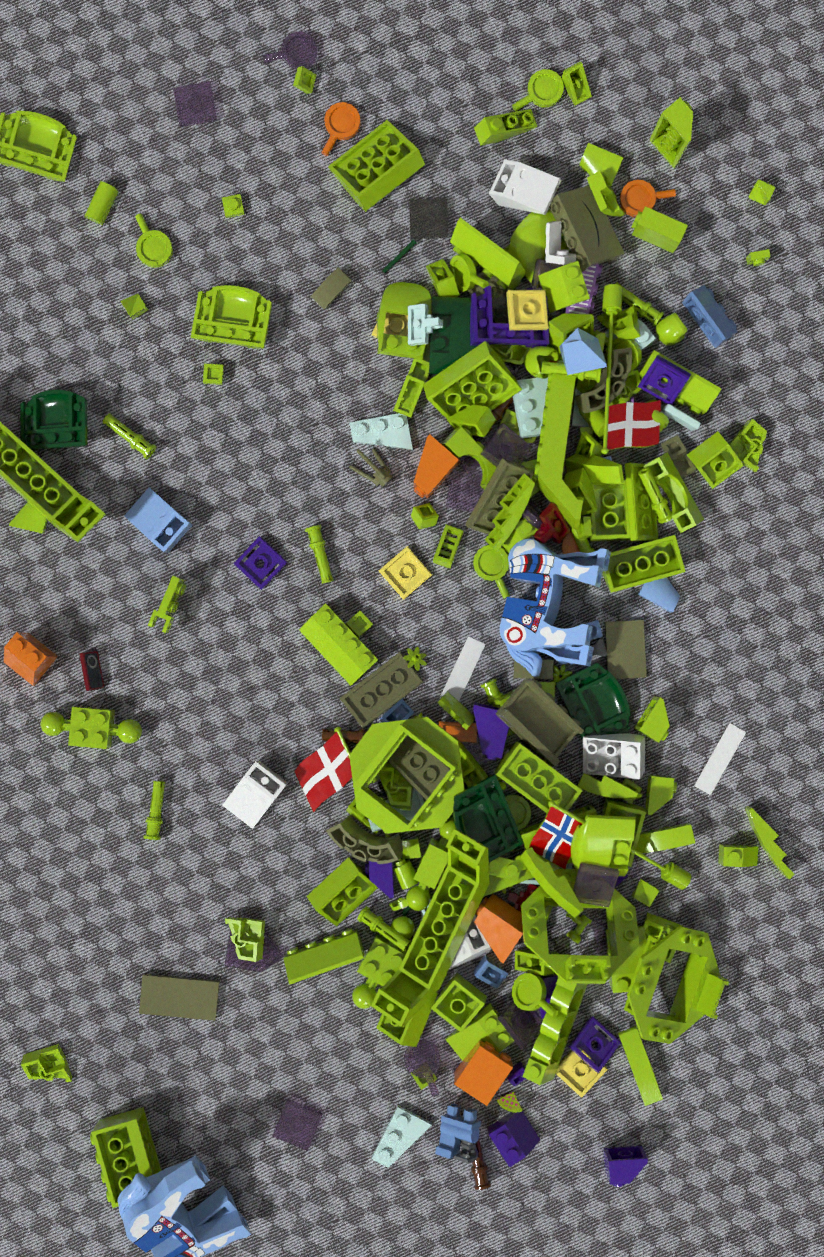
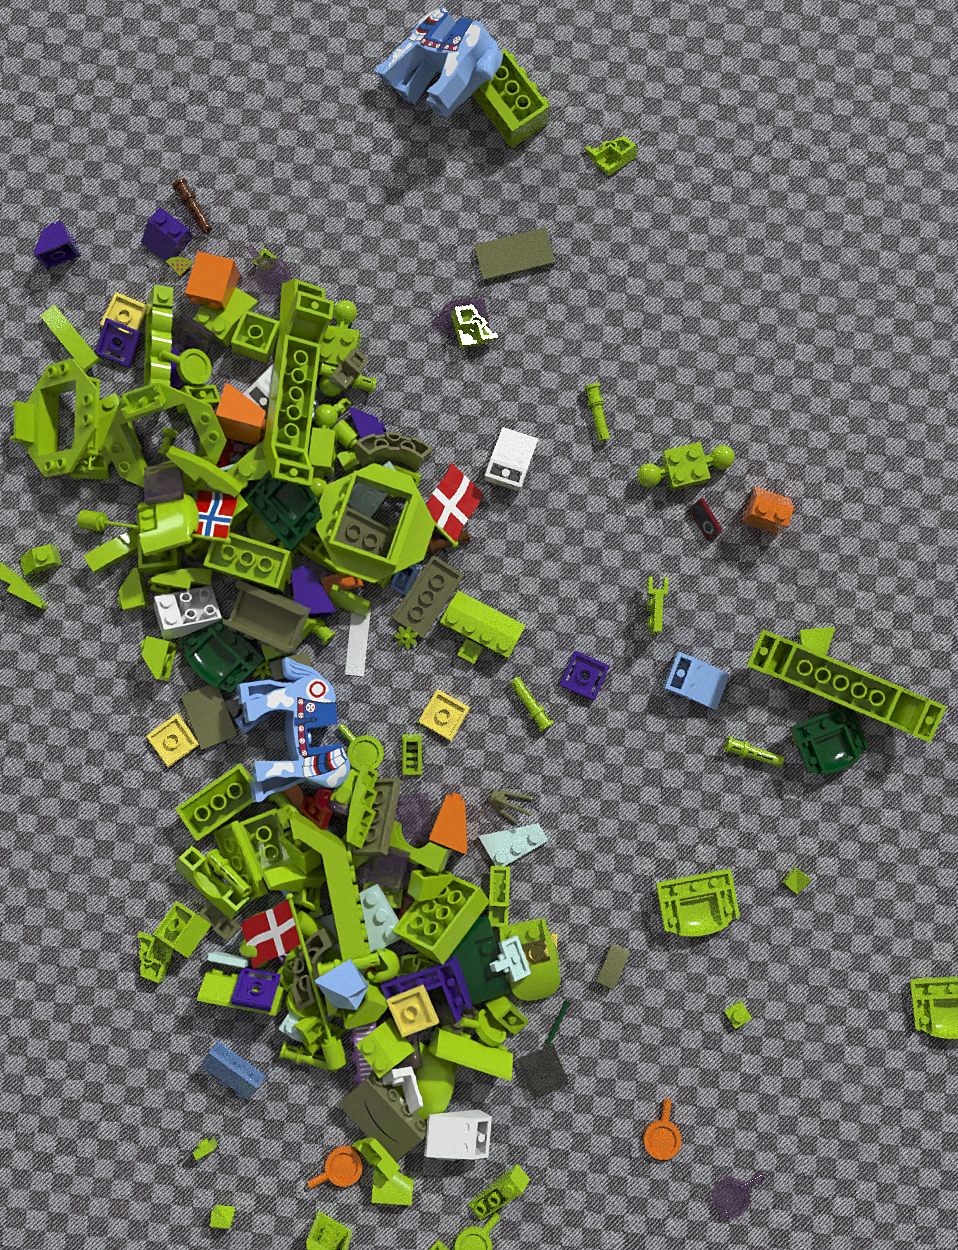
camera: 165 degrees right, 5 degrees down
(101, 203) = (866, 971): lime brick -> none
(152, 246) = (800, 946): lime piece -> none
(195, 104) = (812, 1104): clear purple tile -> none
(213, 374) = (695, 840): lime plate -> none
(297, 1124) = (366, 180): clear purple tile -> none
(304, 80) = (714, 1168): lime plate -> none
(323, 956) = (395, 334): lime slope -> none
(341, 892) = (399, 398): lime slope -> none
(377, 165) = (612, 1106): lime slope -> none
(380, 936) = (348, 369): none -> olive slope
(397, 788) = (380, 509): lime slope -> none
(399, 1135) = (271, 202): light aqua wing -> none
(424, 516) = (444, 775): lime slope -> none
(458, 1128) = (220, 224): medium blue hips -> none
(490, 972) = (237, 373): medium blue slope -> none
(516, 1074) = (179, 293): dark purple slope -> none
(645, 892) = (116, 495): lime slope -> none
(658, 229) = (311, 1140): lime brick -> none
(661, 594) = (192, 780): light blue slope -> none
(667, 638) = (173, 740): none -> light yellow tile
(670, 330) = (267, 1043): lime helmet -> none
(720, 759) = (86, 644): white sticker -> none

